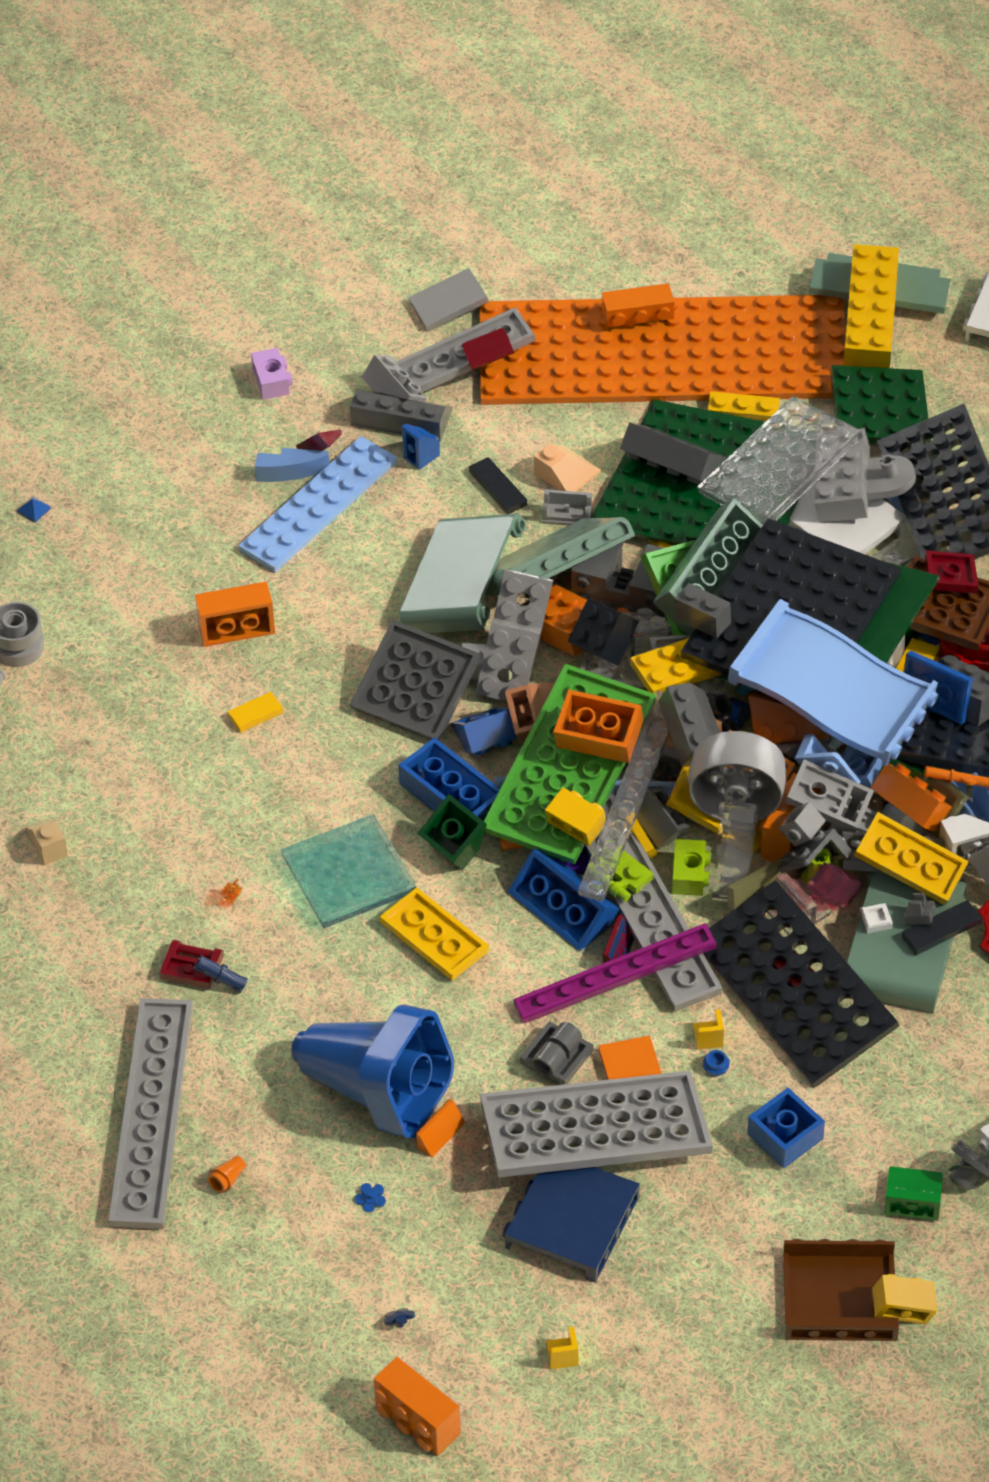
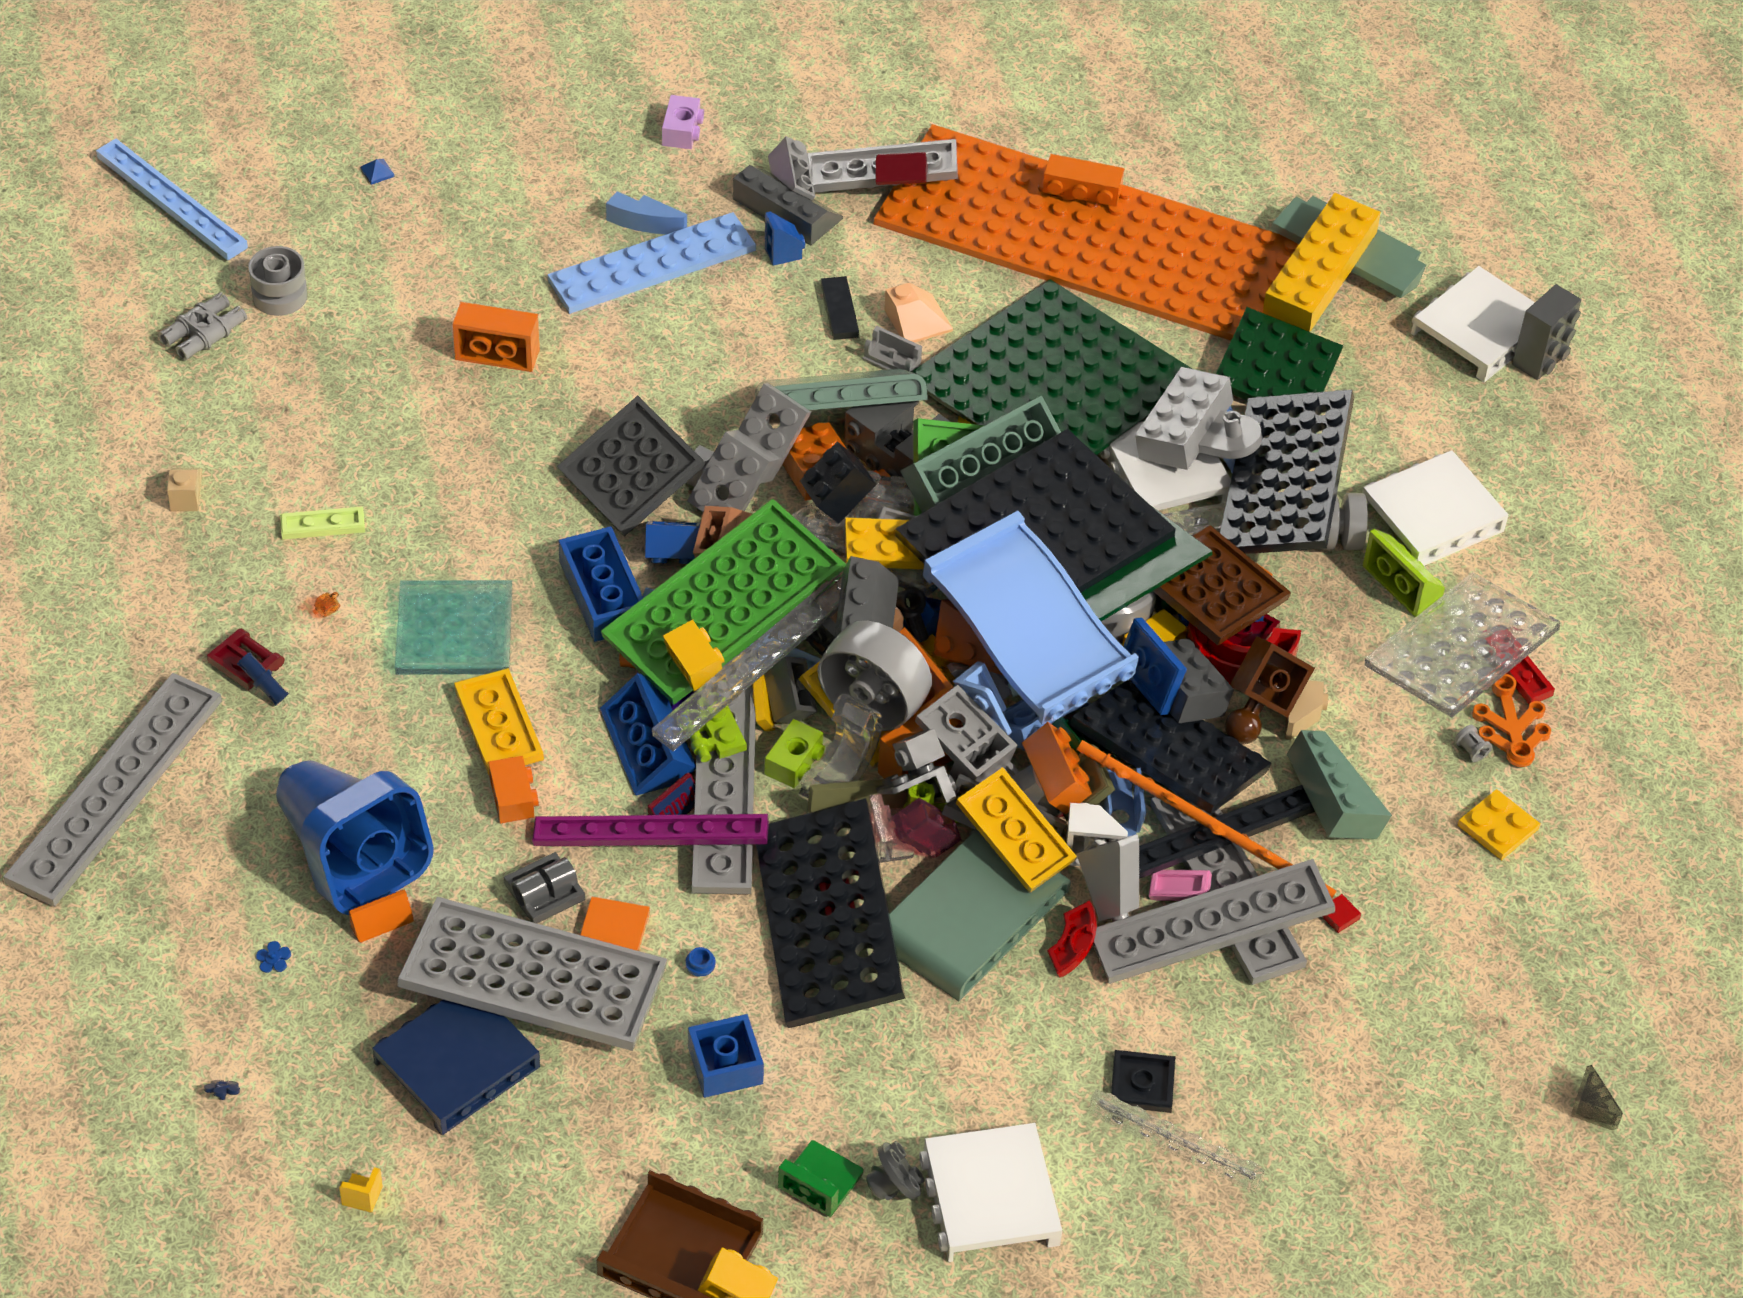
camera: 20 degrees right, 0 degrees up
(181, 826) = (322, 523): none -> yellowish green tile
(226, 1174) = (143, 878): orange cone -> none
(255, 712) = (463, 439): yellow tile -> none
(320, 440) = (684, 200): dark red slope -> none
(416, 1406) = (173, 1185): orange brick -> none
(448, 299) = (901, 111): light grey tile -> none
(454, 831) = (572, 628): dark green slope -> none
(457, 572) = (715, 387): windscreen -> none
(481, 984) = (512, 789): none -> orange brick
(598, 726) = (763, 572): orange brick -> none
(670, 452) = (1027, 335): dark grey slope -> none
(702, 610) = (935, 494): dark grey brick -> none
(709, 1033) = (711, 929): yellow panel -> none
(743, 405) = (1138, 318): yellow plate -> none
(781, 460) = (1125, 380): clear plate -> none
(876, 918) = (948, 878): white tile -> none
(919, 911) = (995, 887): dark grey tile -> none
(943, 927) = (1011, 914): black tile -> none
(955, 571) = (1236, 554): dark red plate -> none

